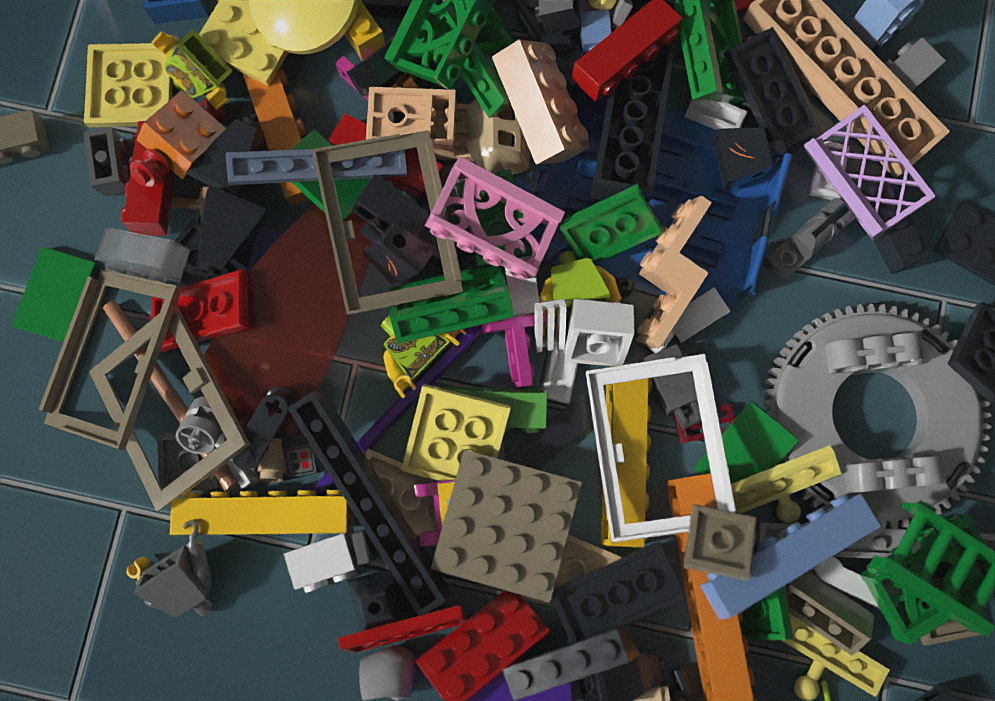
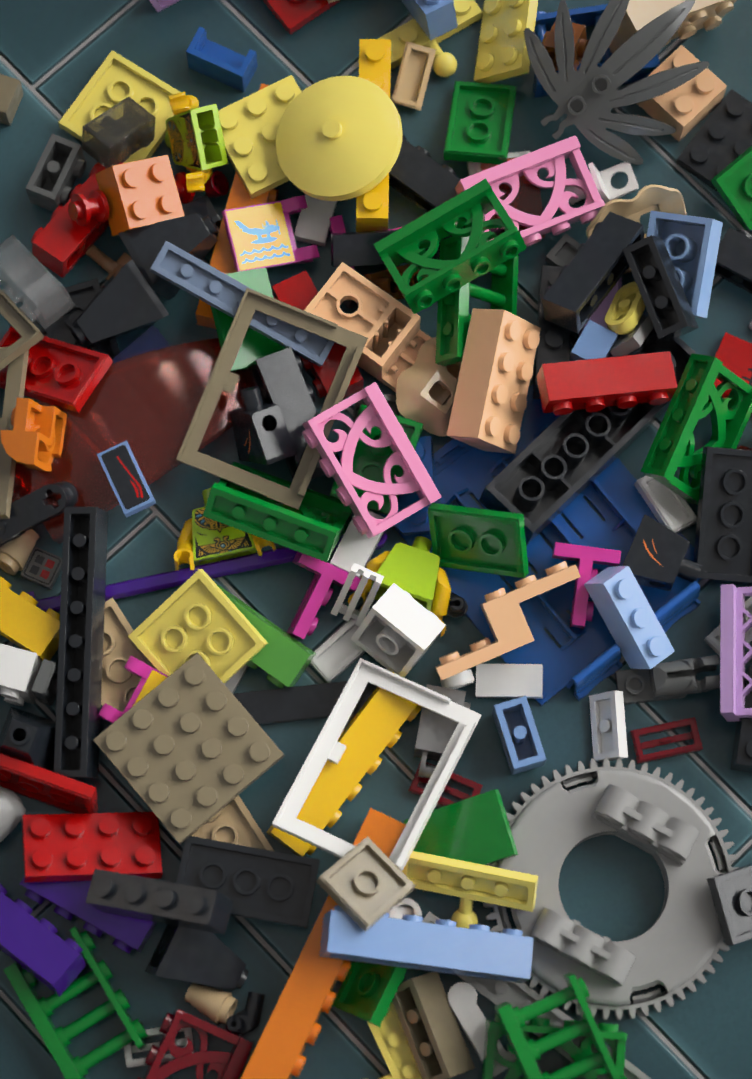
camera: 30 degrees right, 5 degrees down
(133, 98) = (118, 133): none -> clear smoke brick
(226, 367) = (35, 434): none -> orange brick
(235, 94) = (216, 185): none -> dark red hinge
(296, 107) = (264, 235): none -> flag
(319, 354) = (126, 479): none -> black slope
(324, 73) = (314, 221): none -> white tile
(713, 226) = (586, 556): none -> dark pink bracket
(735, 350) = (519, 735): none -> medium blue brick
(757, 210) = (629, 617): none -> light blue brick
(790, 300) = (608, 726): none -> white plate
(819, 300) = (638, 747): none -> dark red tile

